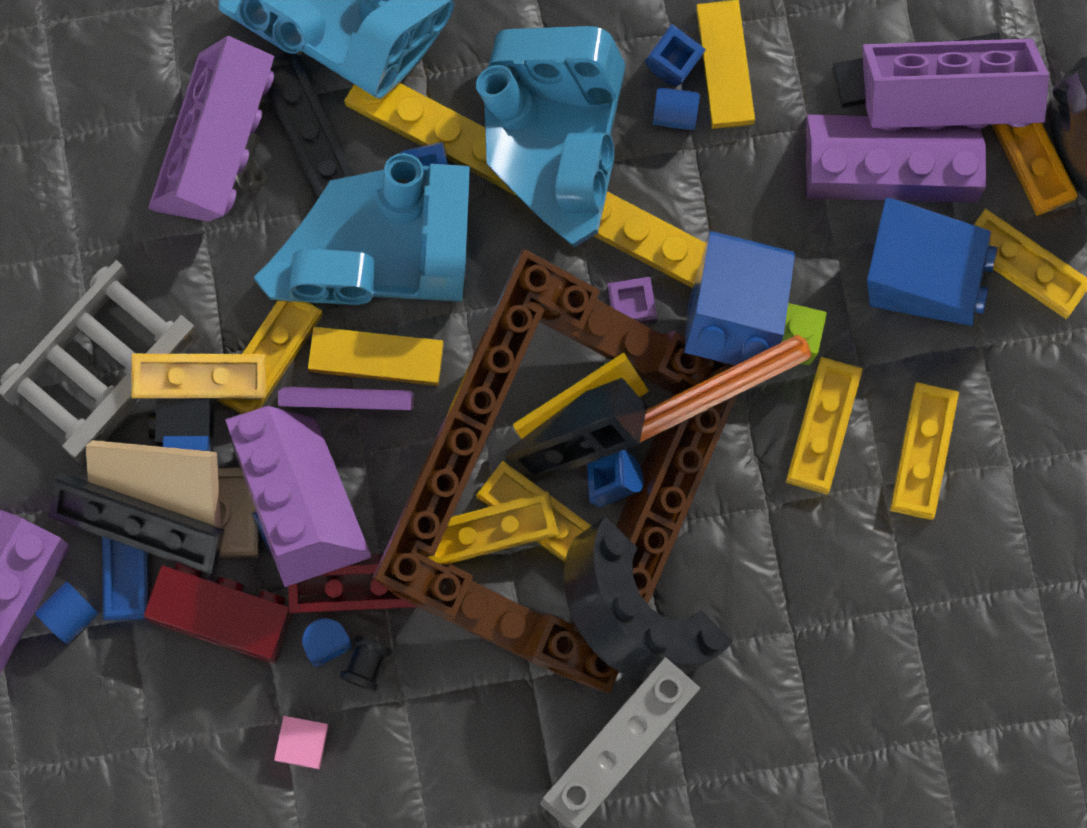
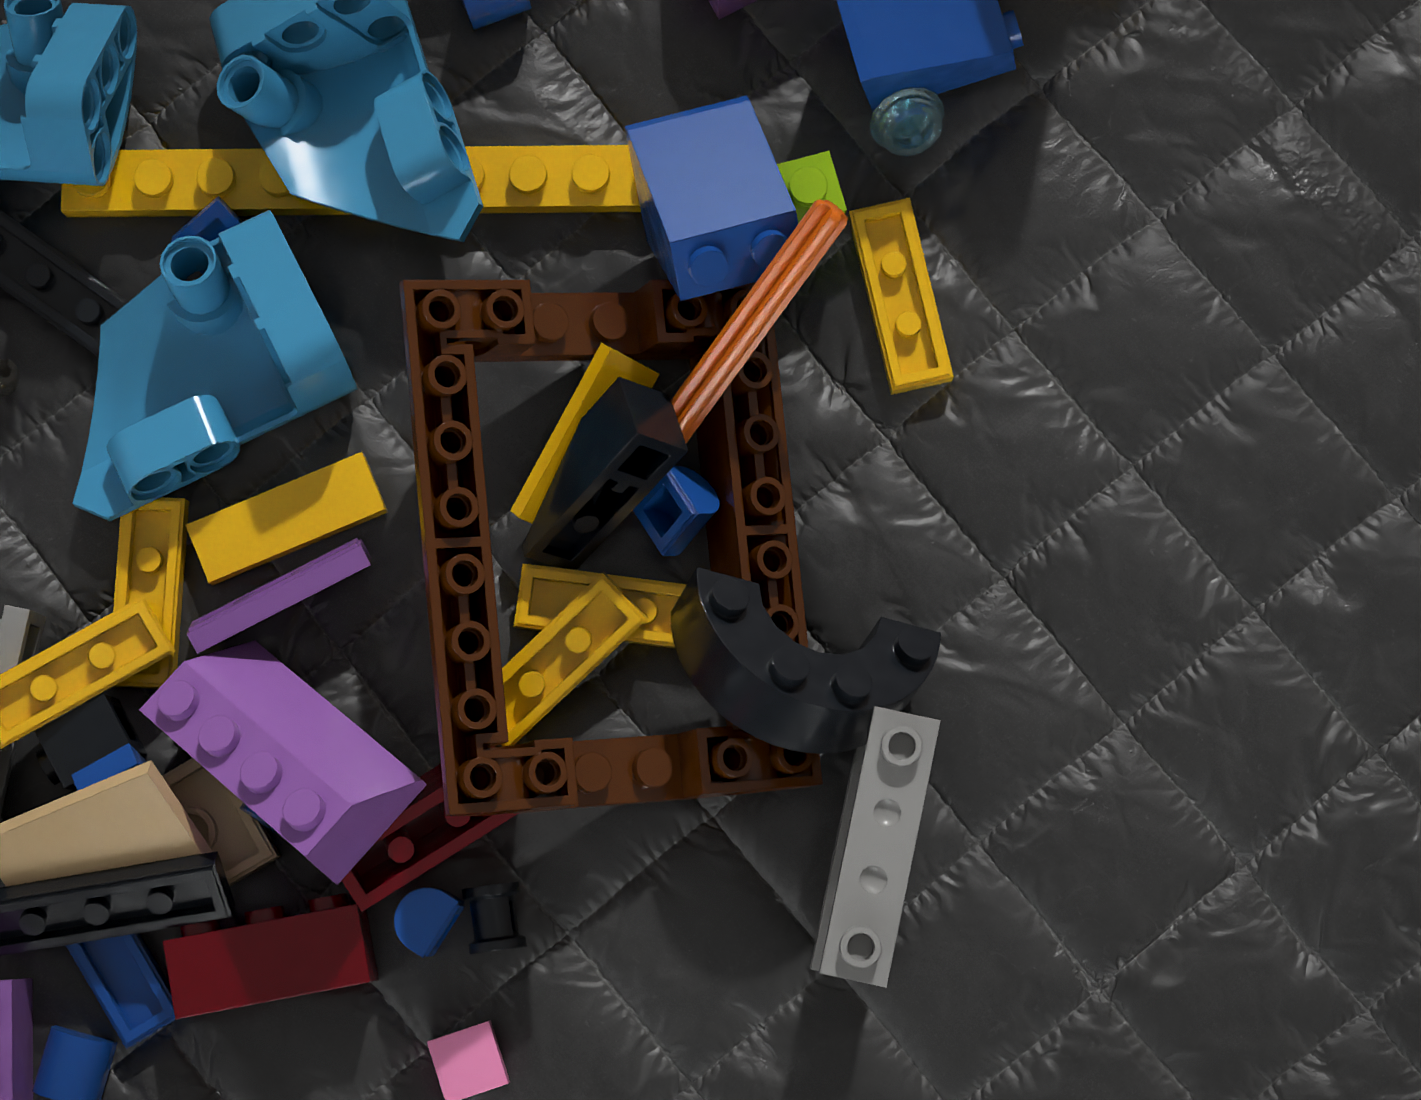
camera: 25 degrees left, 5 degrees up
(634, 299) = (574, 266): medium lavender tile -> none
(887, 321) = (908, 121): none -> clear light blue hat
(924, 451) = (1042, 260): yellow tile -> none

